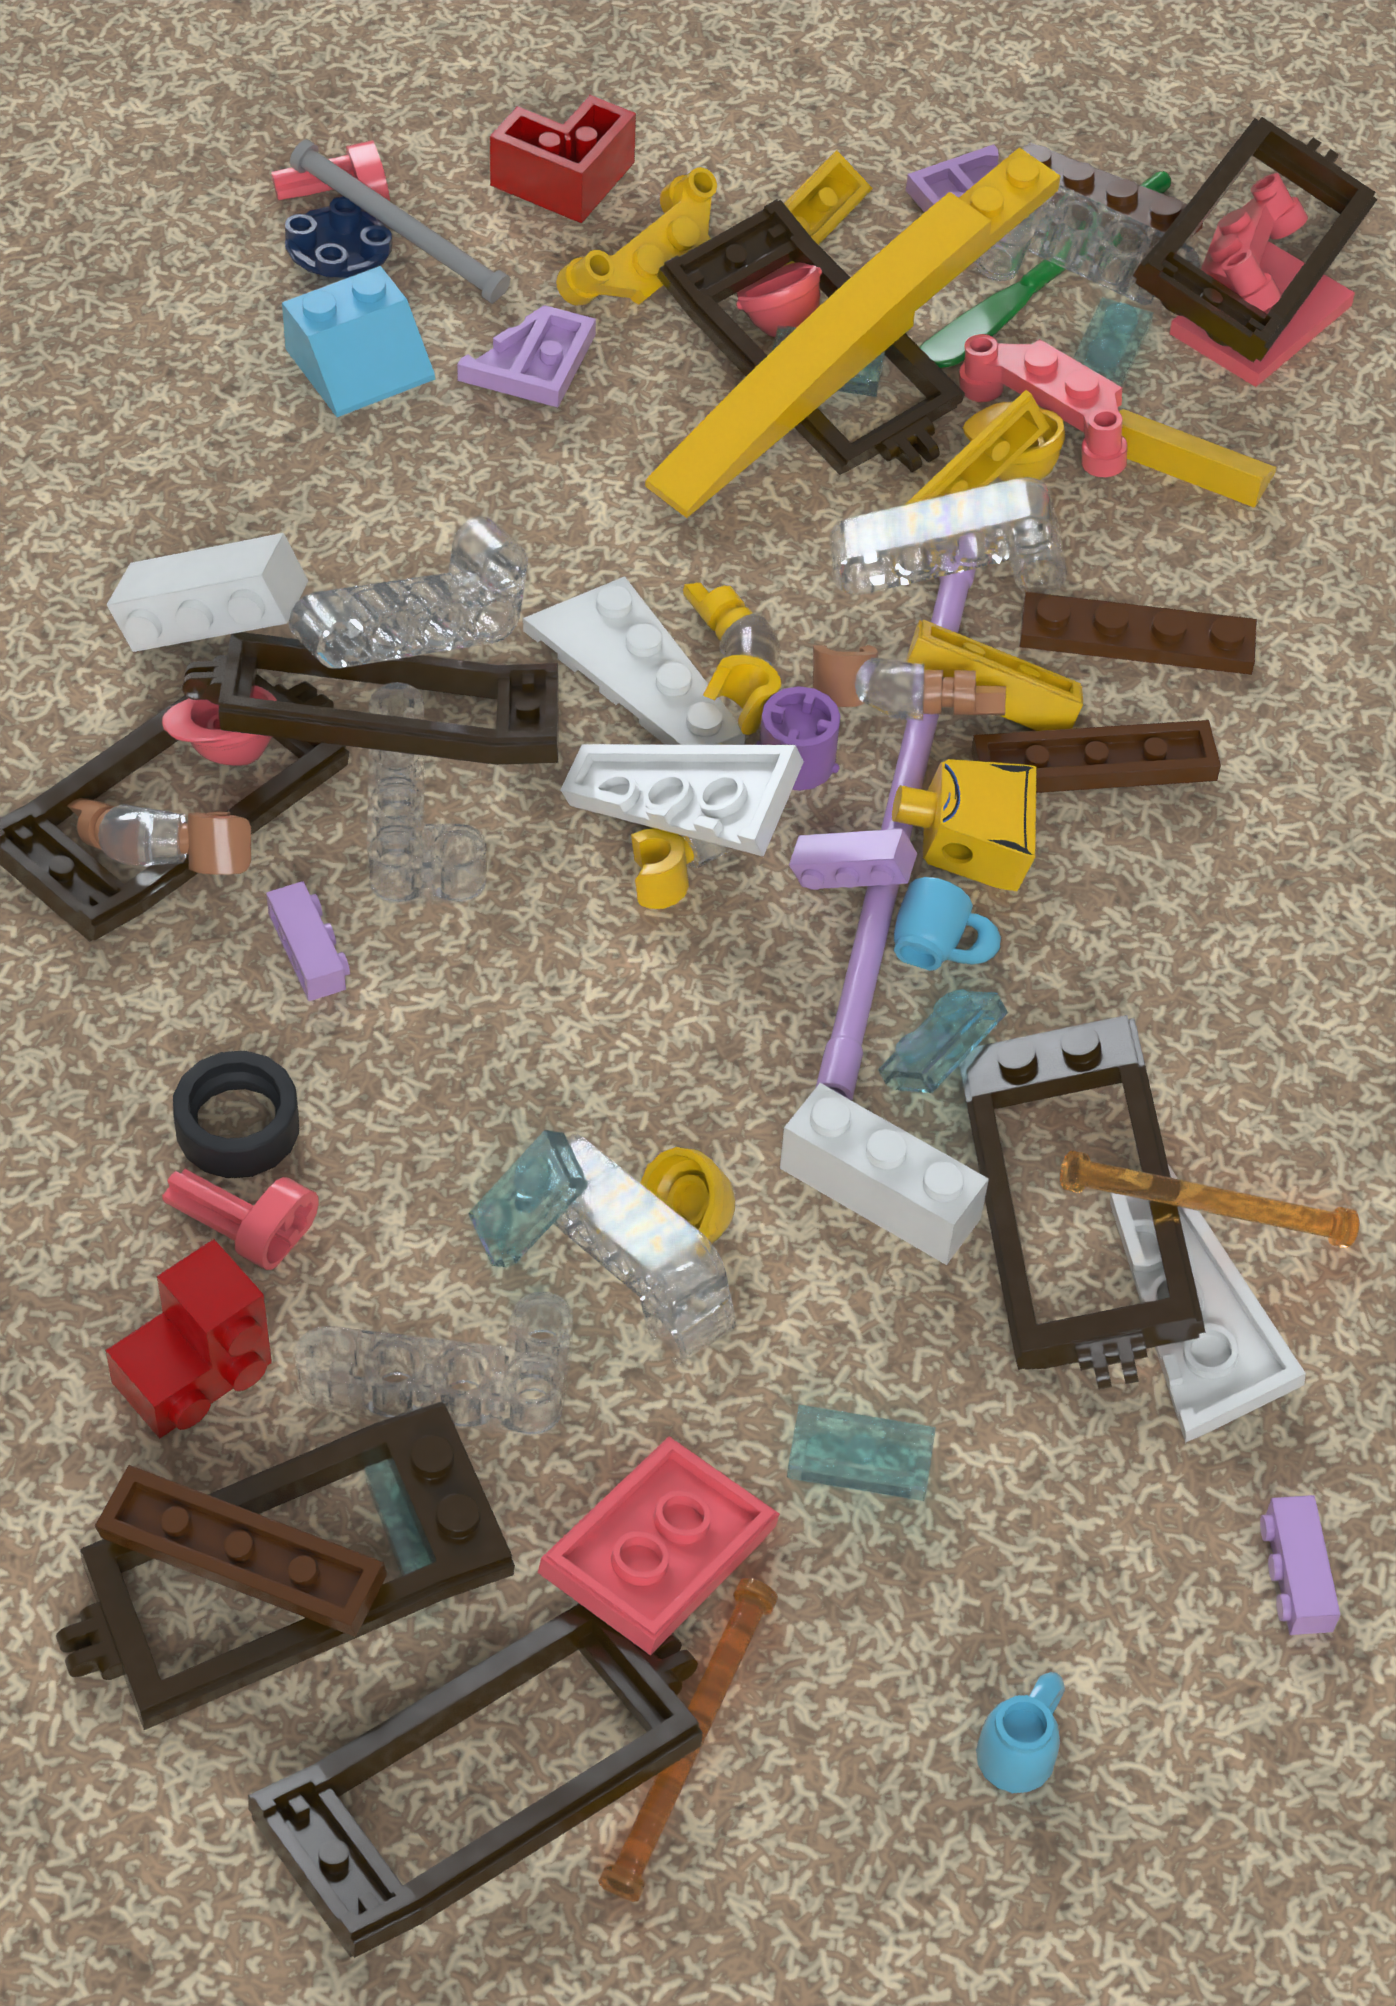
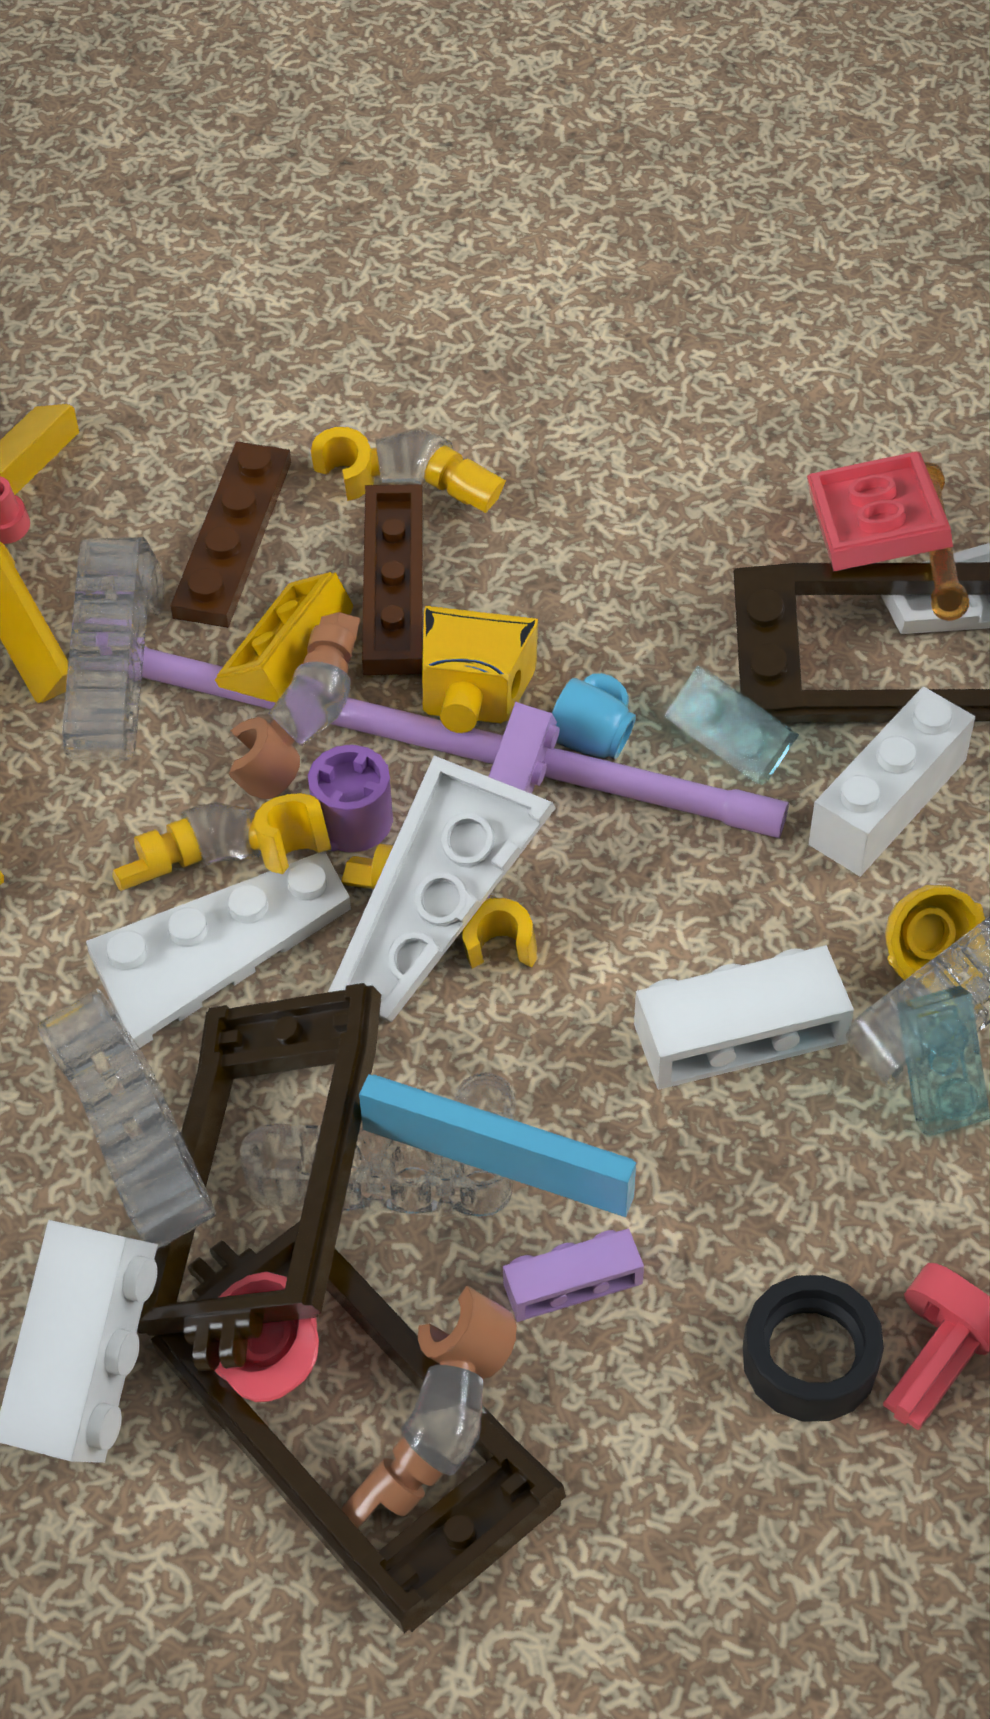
camera: 80 degrees left, 0 degrees up
(391, 840) = (498, 1144): none -> medium azure tile
(584, 1051) = (742, 1016): none -> white brick
(1242, 1145) = (878, 511): none -> coral tile
(1261, 753) = (405, 458): none -> yellow piece

